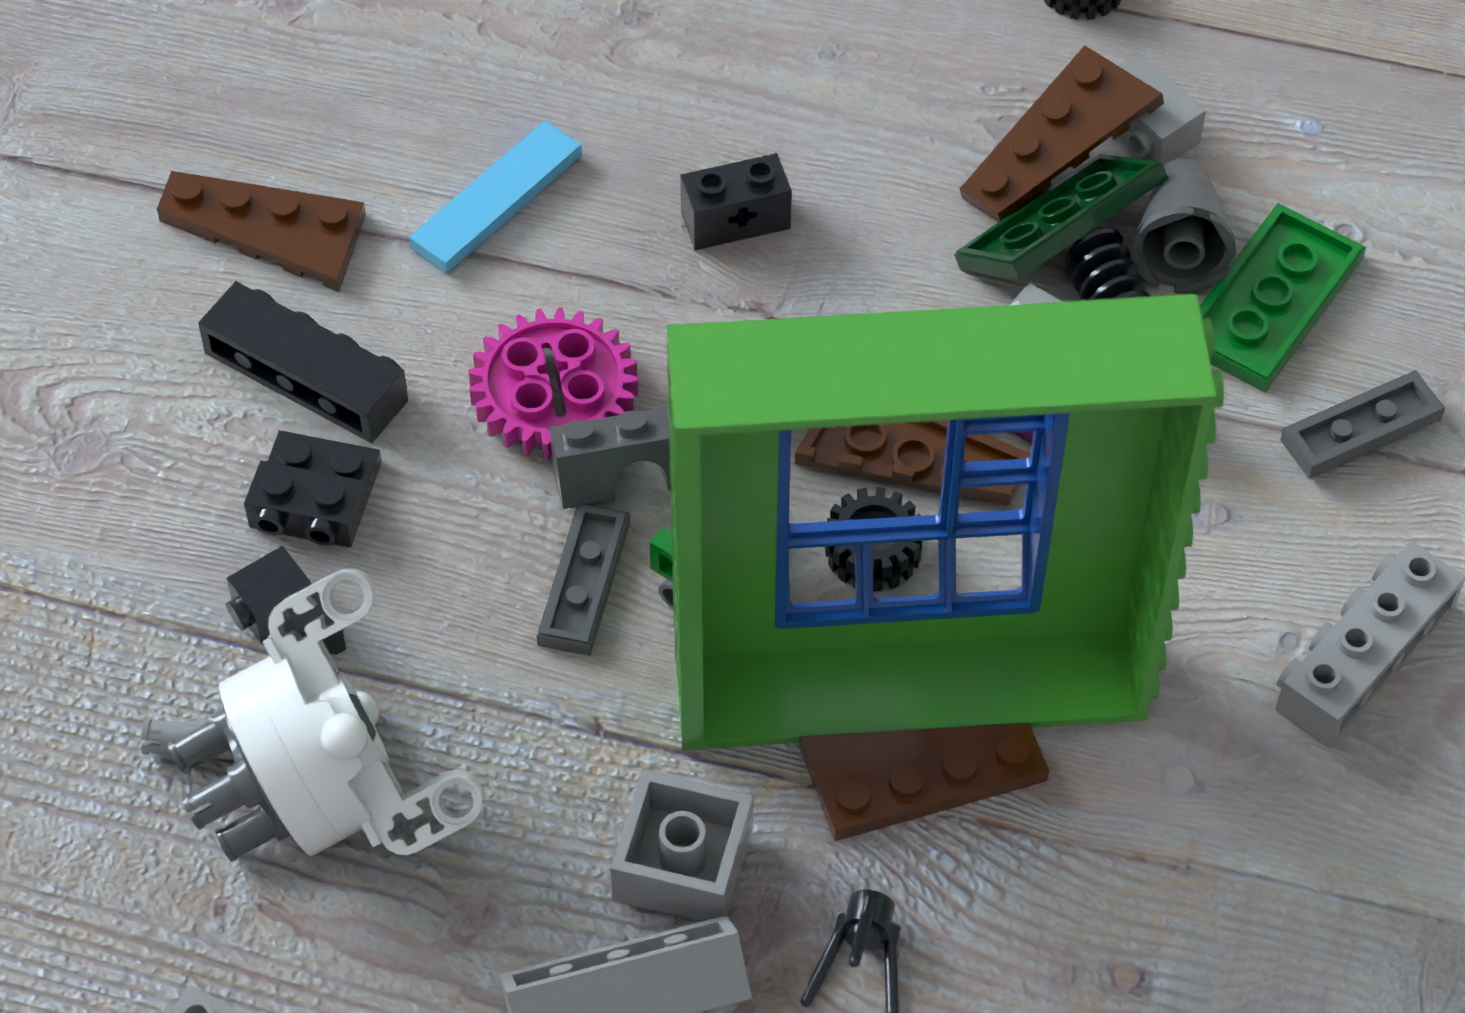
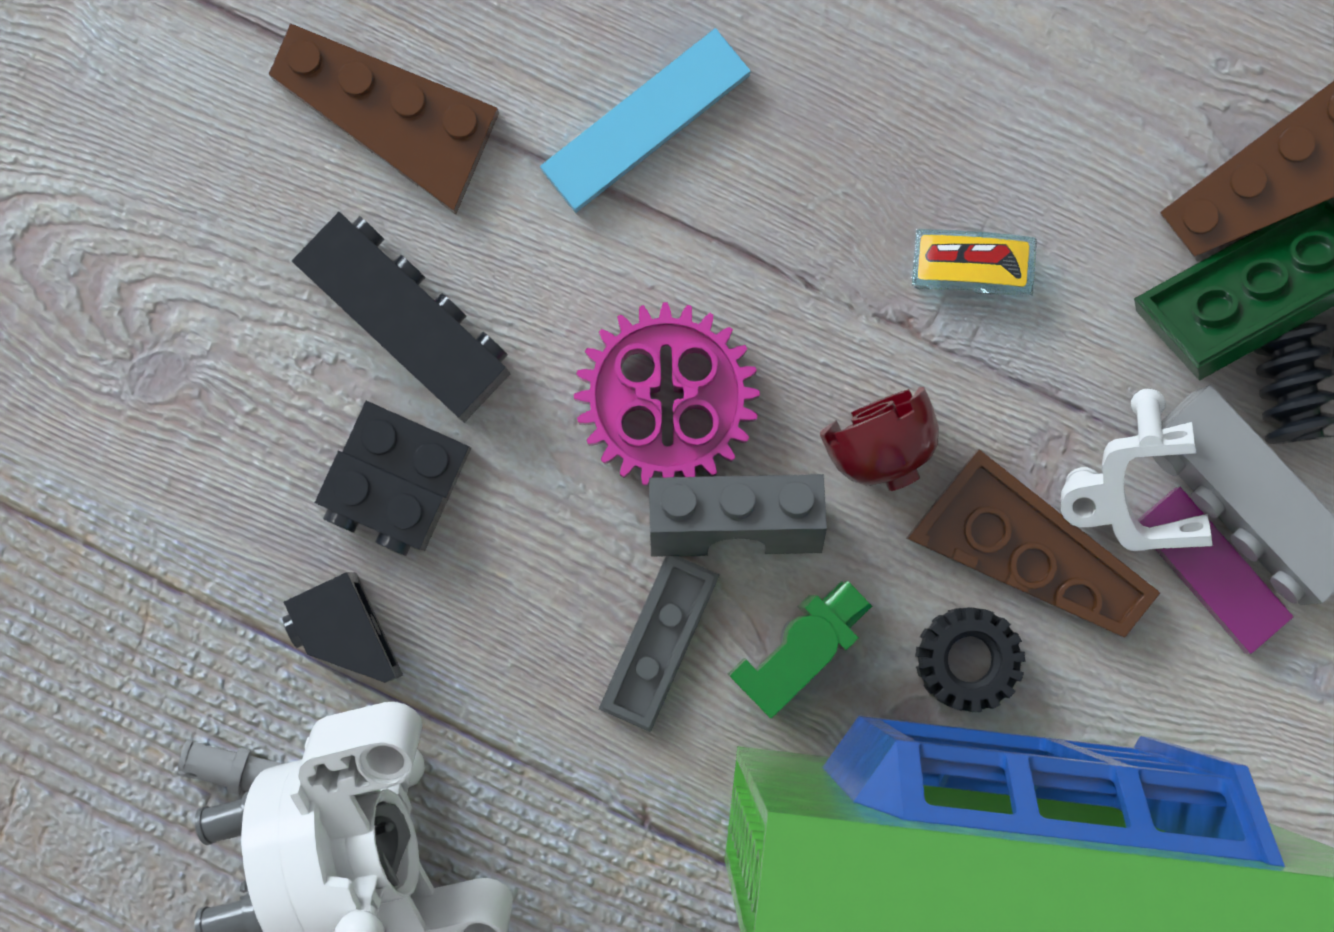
camera: 10 degrees right, 30 degrees up
(736, 201) = (908, 190): black brick -> none
(816, 244) = (974, 262): none -> slope

